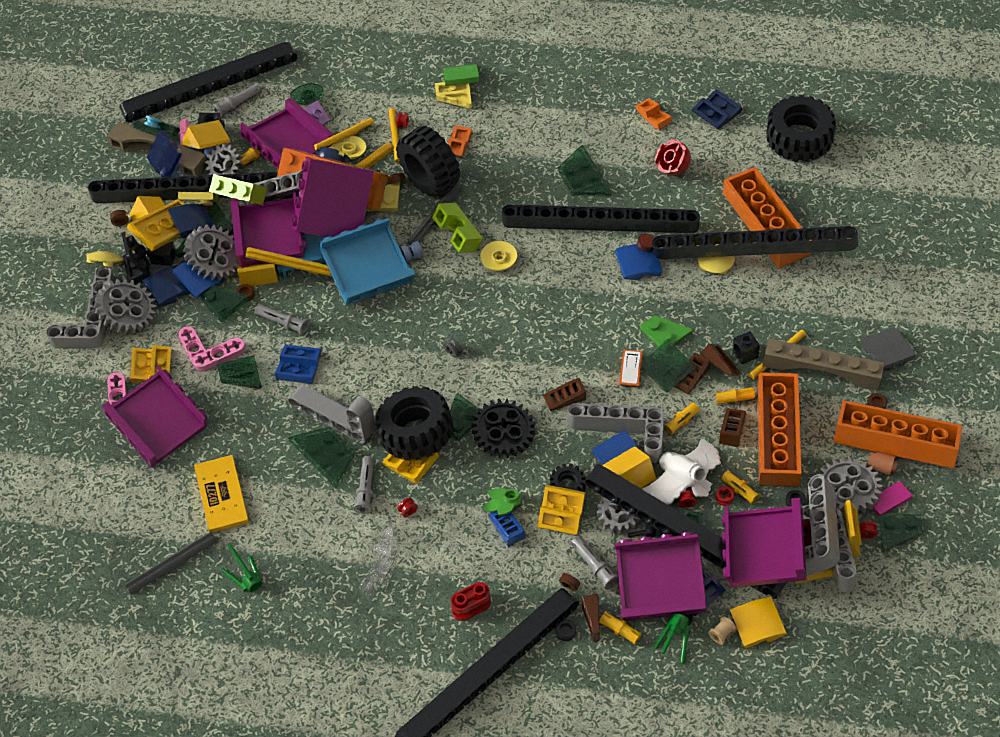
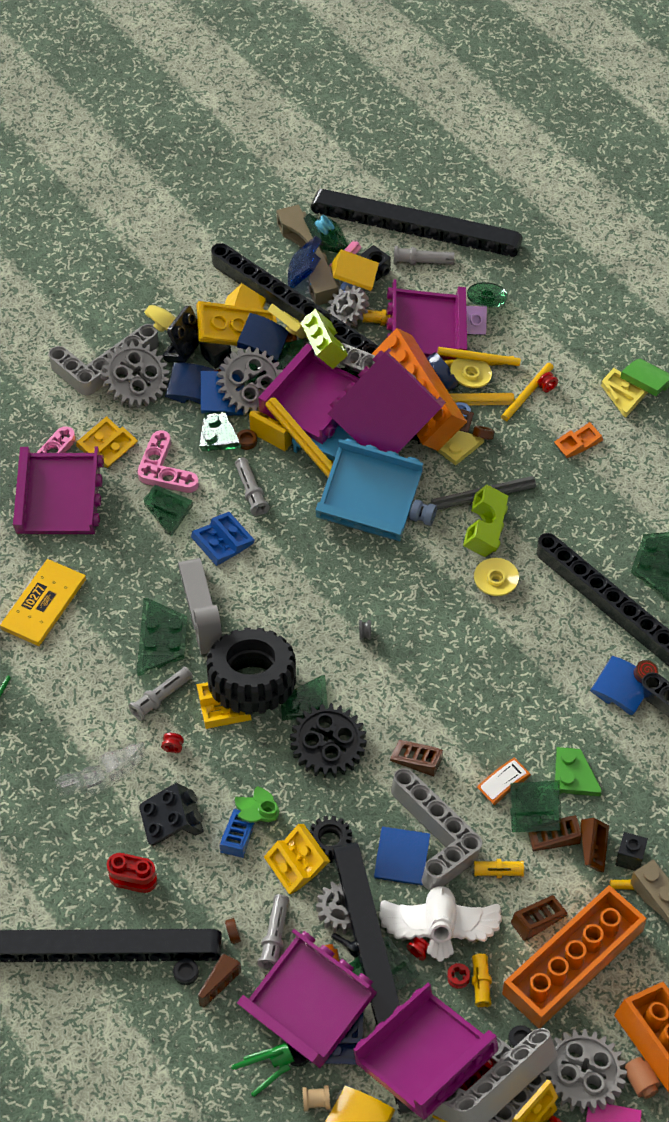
camera: 40 degrees right, 0 degrees up
(119, 217) = (214, 292): reddish brown tile -> none
(428, 161) = (515, 436): black tyre -> none
(453, 550) = (169, 813): none -> black bracket
(620, 627) = (231, 1012): yellow pin -> none
(634, 467) = (394, 876): yellow slope -> none
(735, 395) = (570, 888): yellow axle -> none

